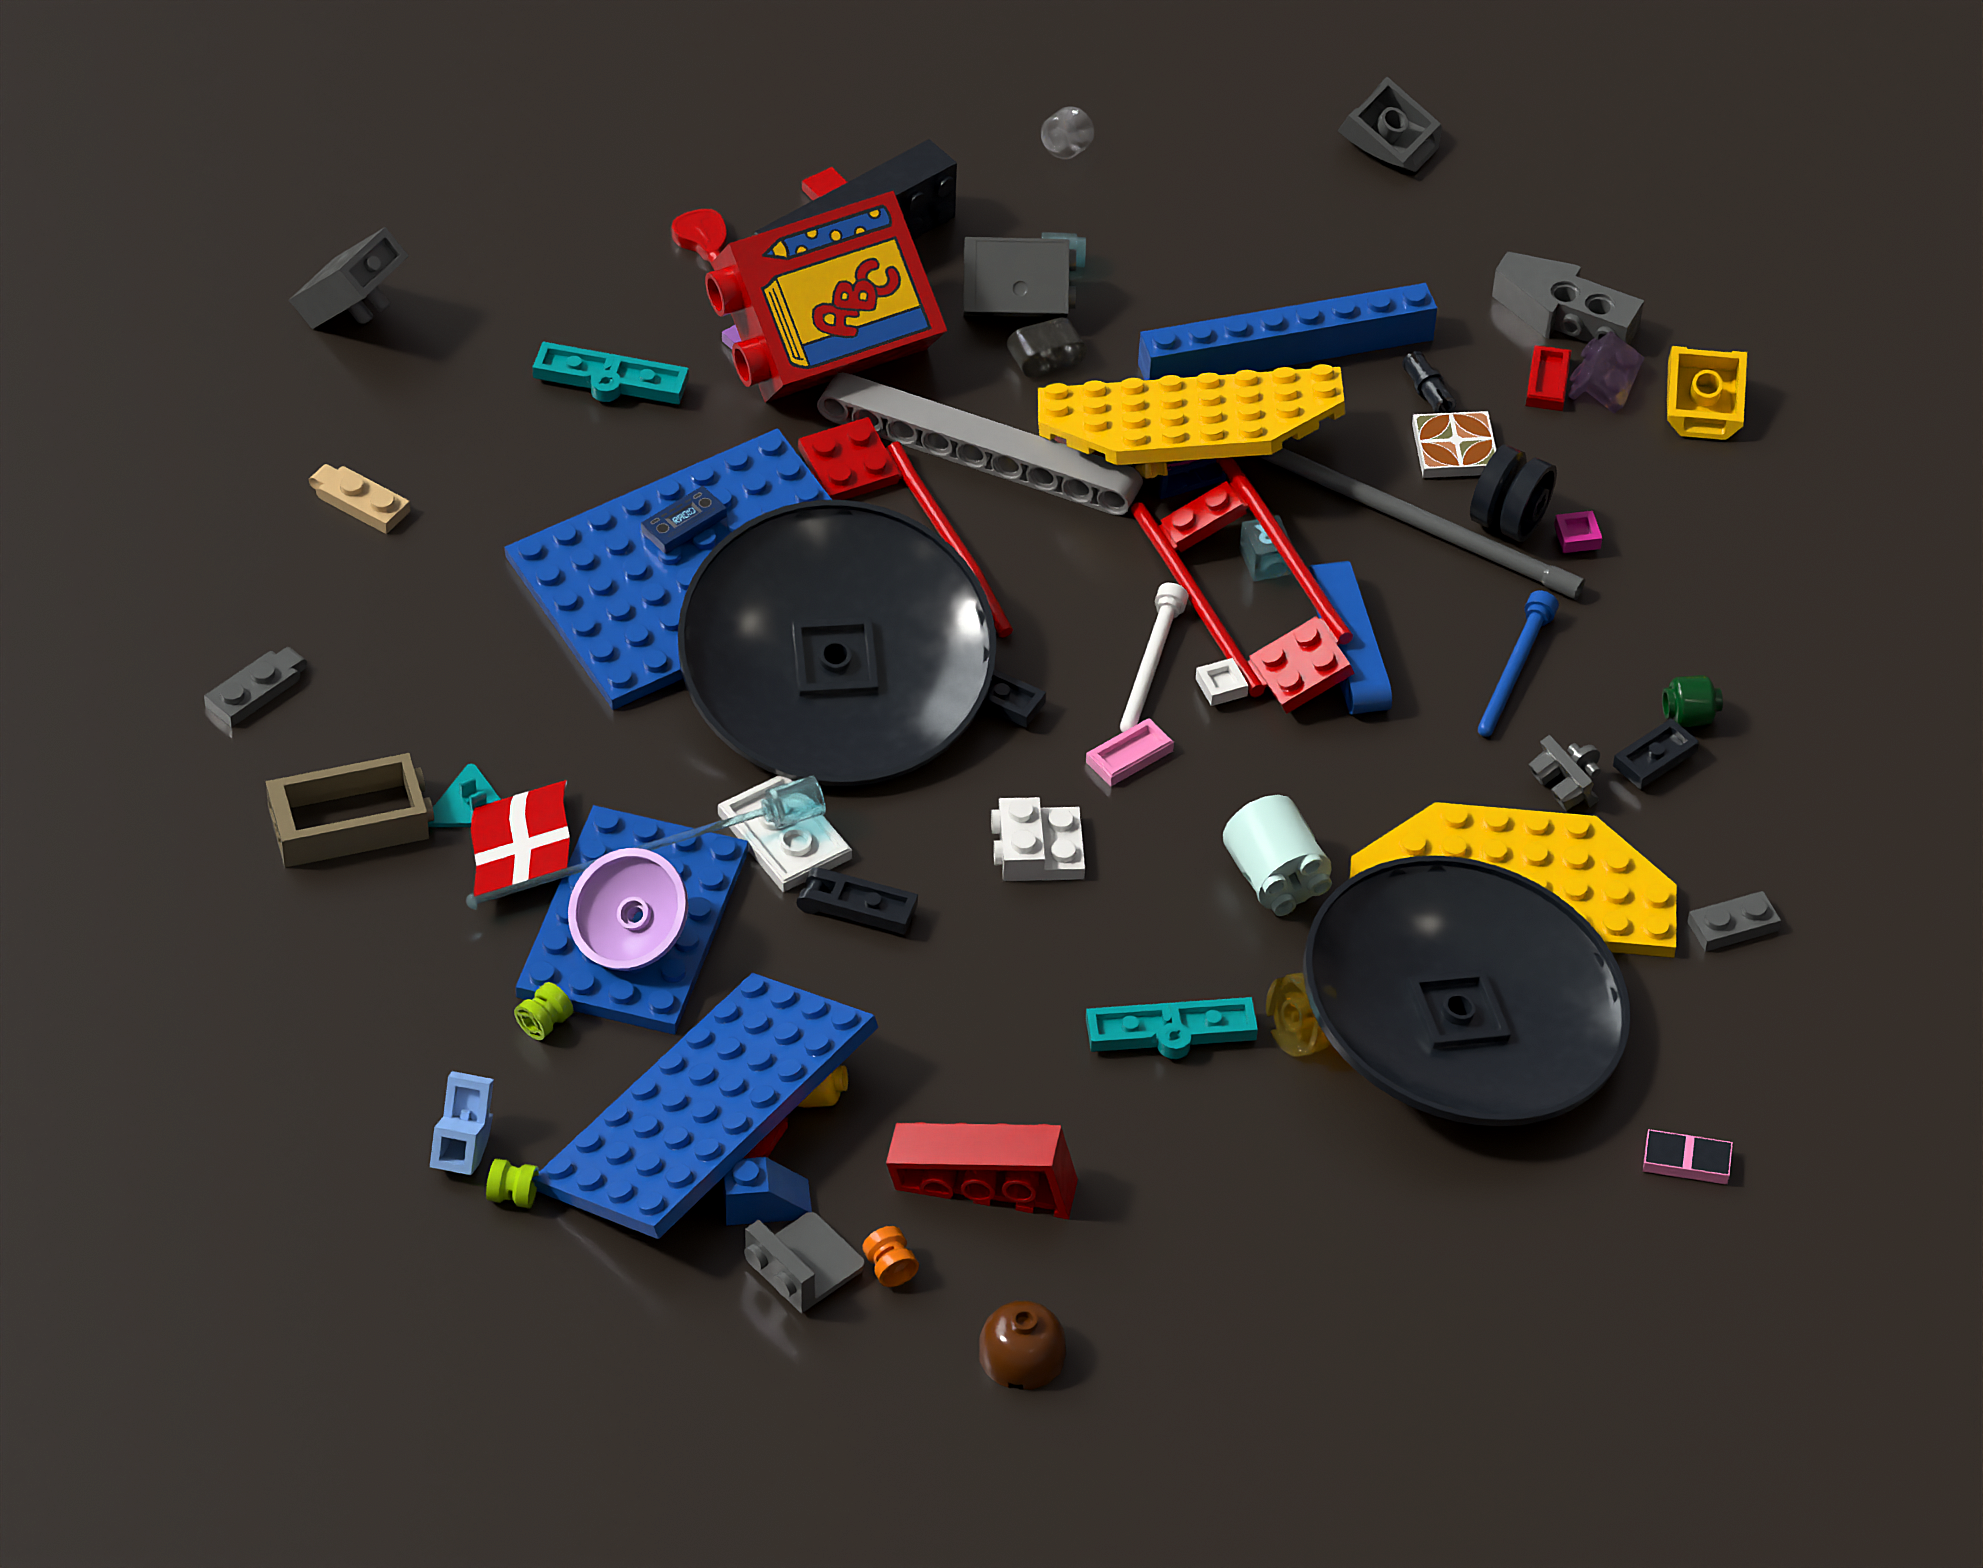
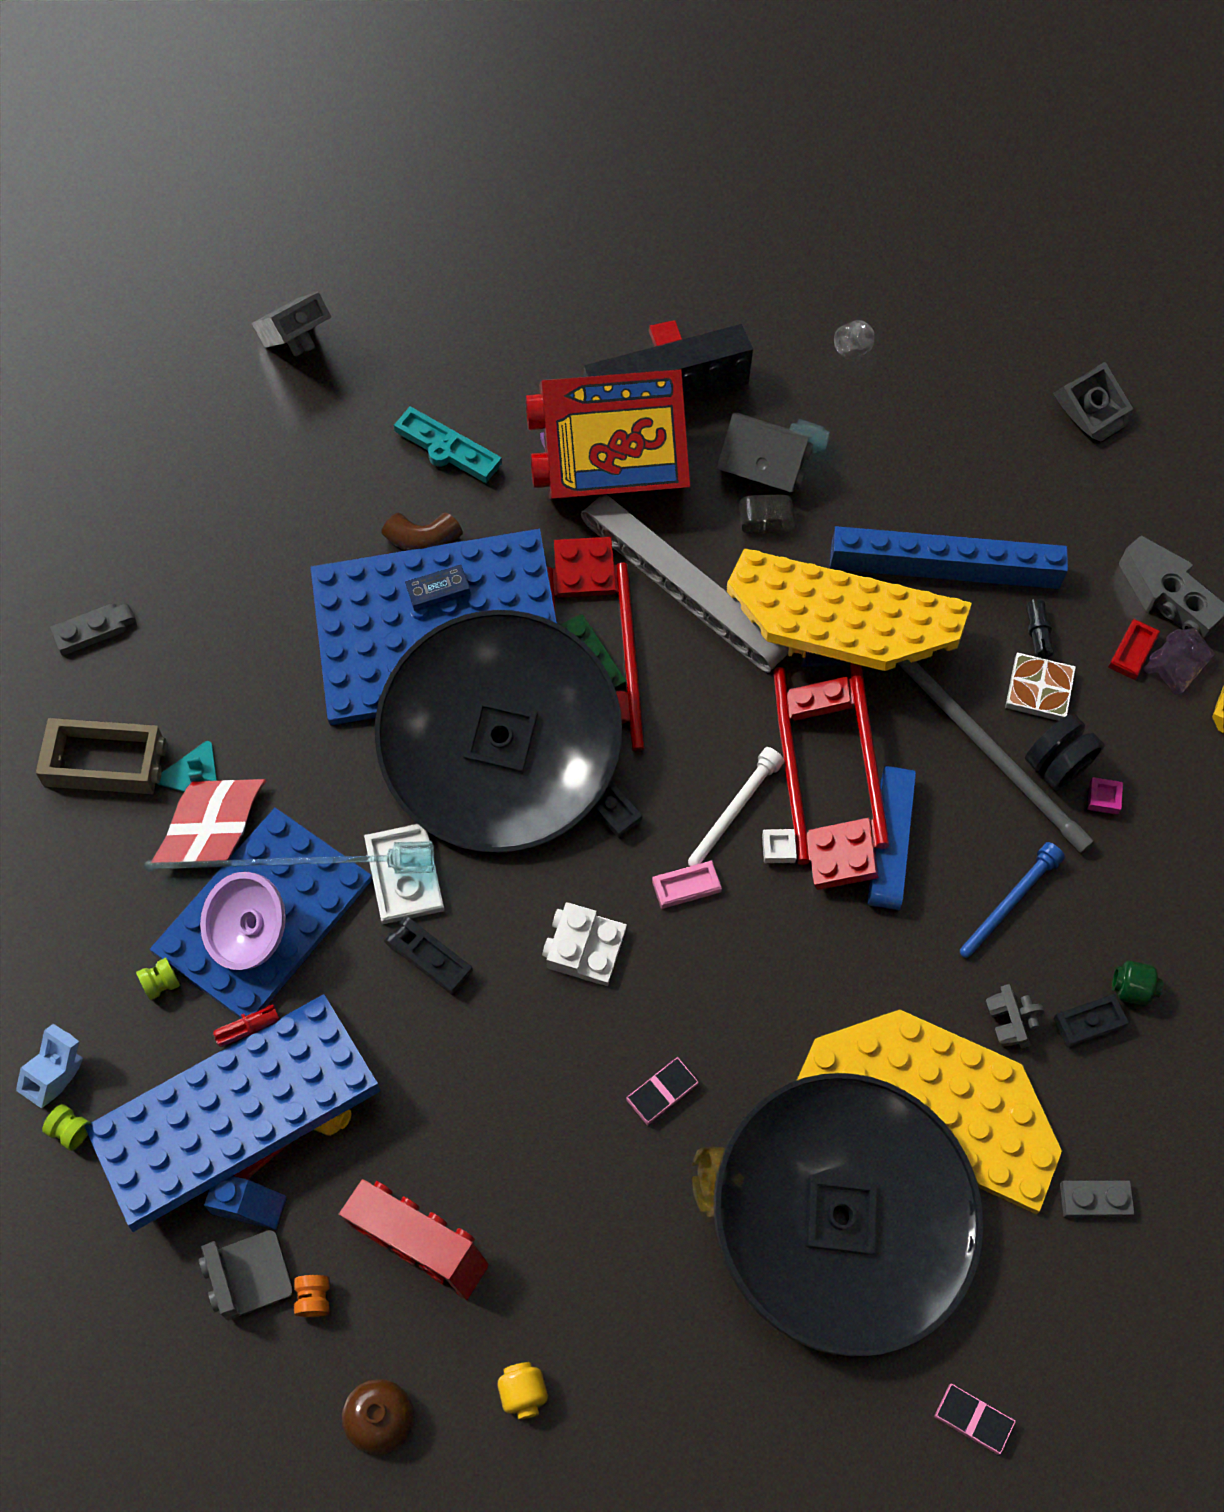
camera: 20 degrees right, 15 degrees up
(360, 497) = (233, 494): tan hinge -> none
(611, 480) = (412, 536): none -> reddish brown cylinder
(675, 1028) = (246, 1026): none -> red axle
(700, 232) = (563, 347): red piece -> none
(1171, 1025) = (614, 1150): teal hinge -> none
(1175, 1272) = (522, 1390): none -> yellow head
(1198, 957) = (662, 1091): none -> black tile
(1260, 553) = (851, 738): clear light blue brick -> none
(1277, 853) = (754, 1023): light aqua cylinder -> none

